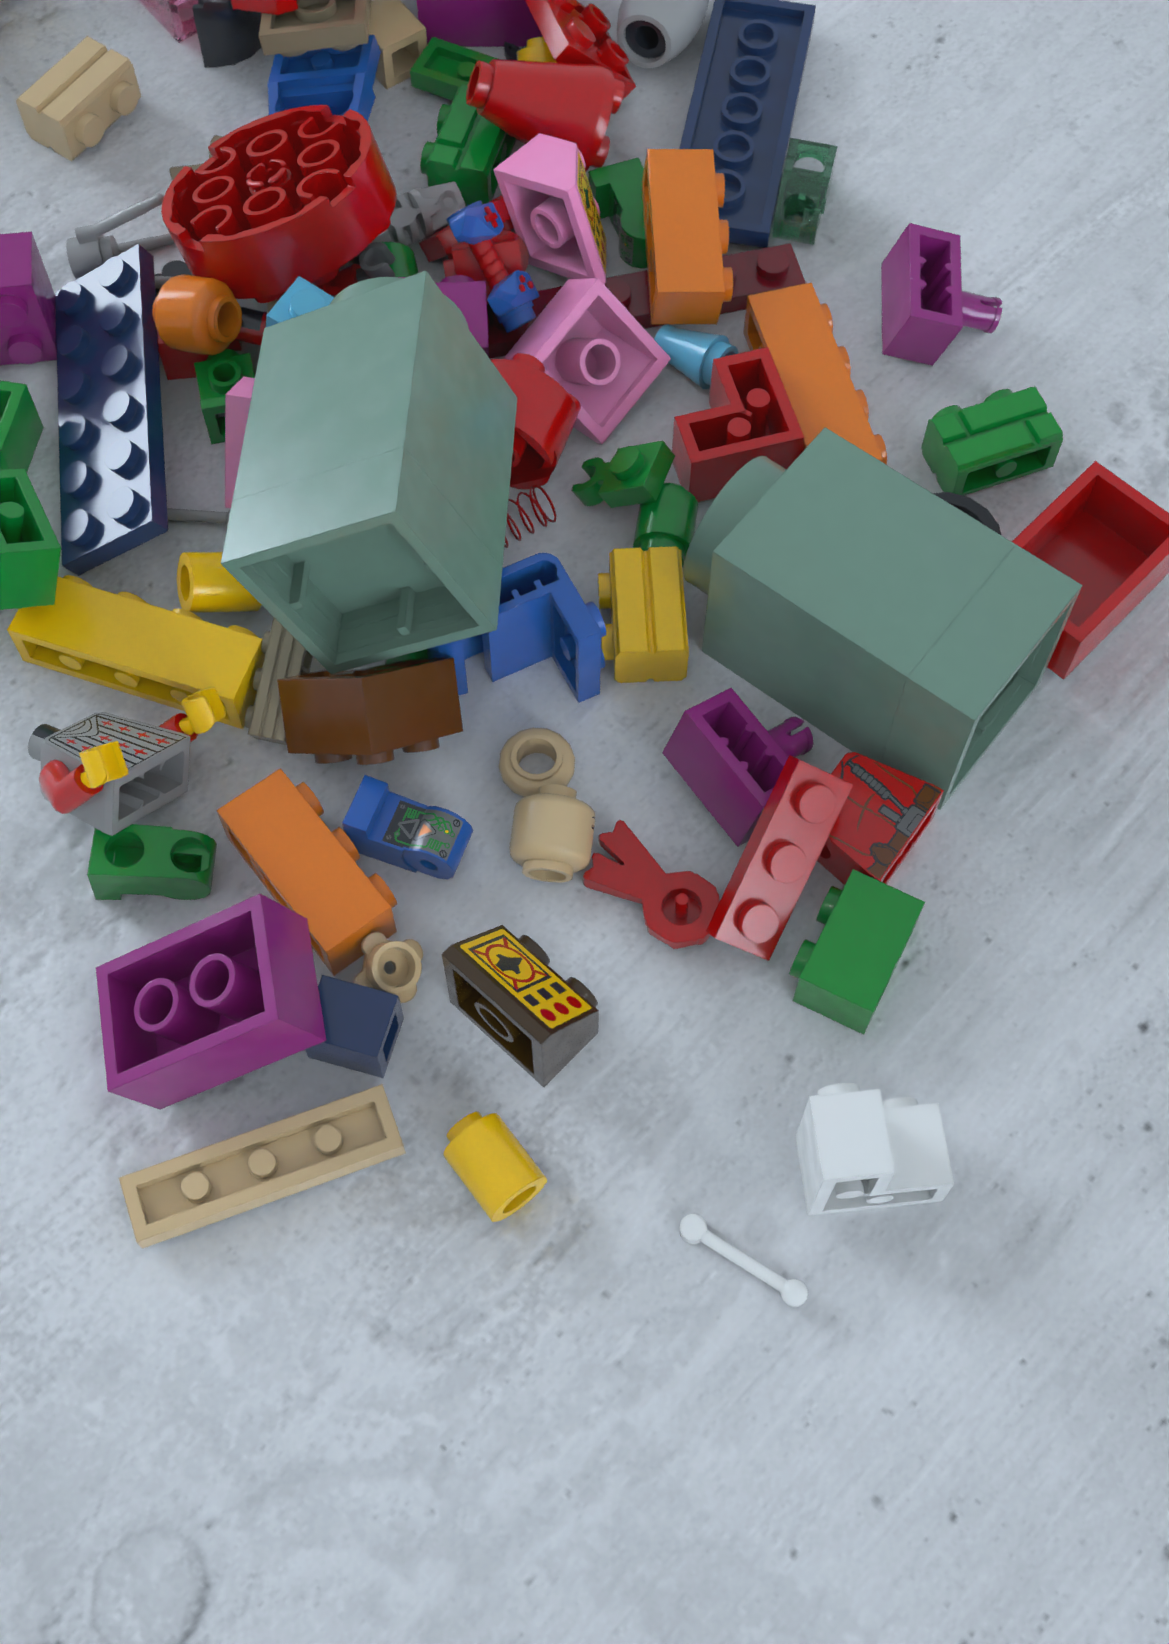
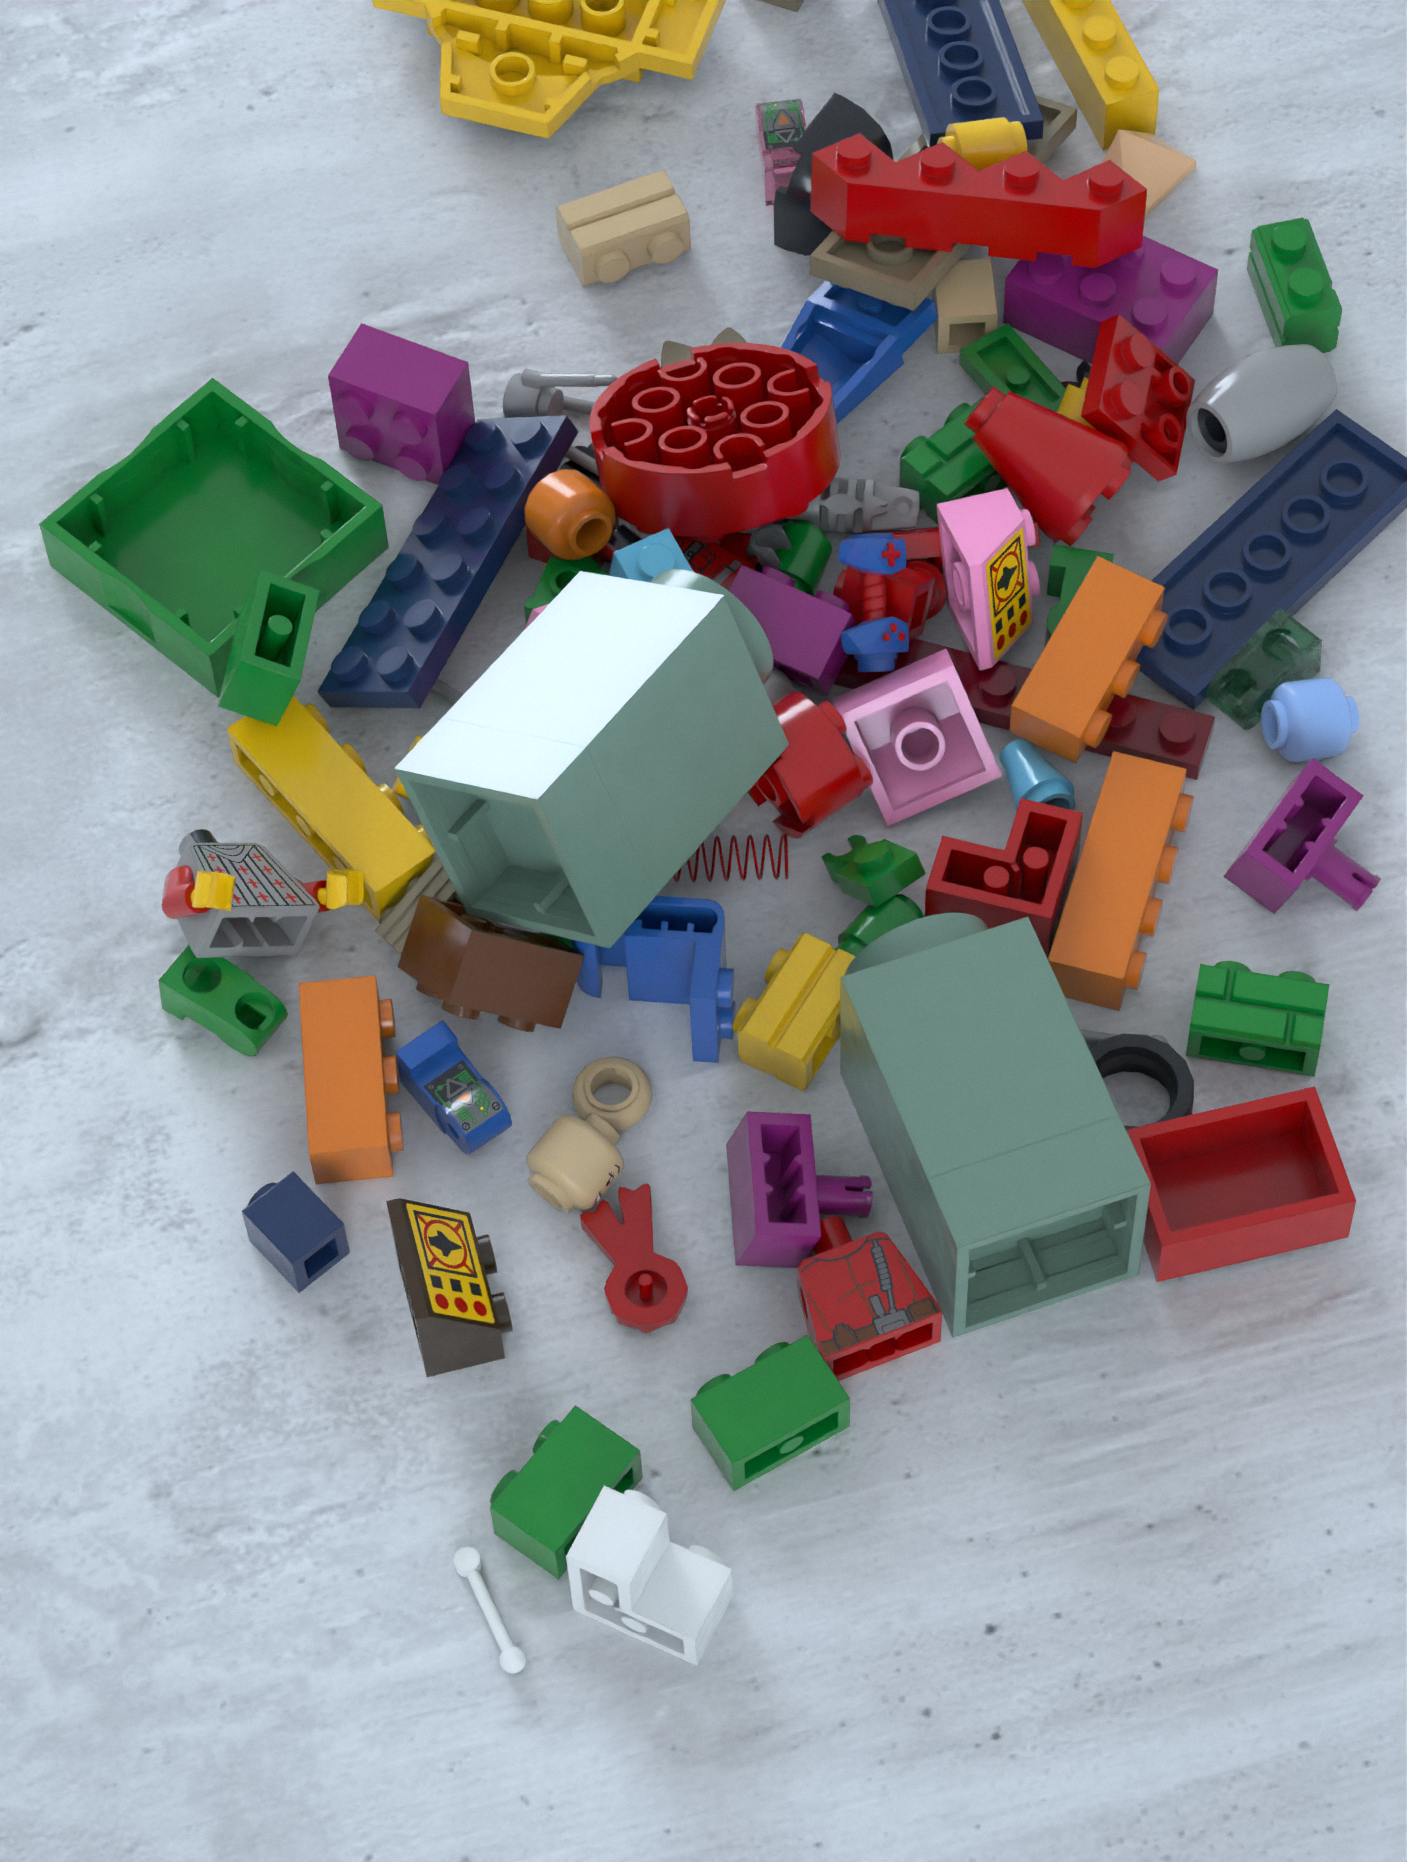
camera: 35 degrees right, 5 degrees down
(209, 1003) = (184, 1141): magenta brick -> none
(261, 1166) = (151, 1304): tan plate -> none
(407, 964) = (358, 1181): tan plate -> none
(493, 1164) = (333, 1410): yellow brick -> none
(741, 1117) = (557, 1487): none -> green brick
(779, 858) = (747, 1288): plate -> none
(863, 210) = (1309, 720): none -> light blue head

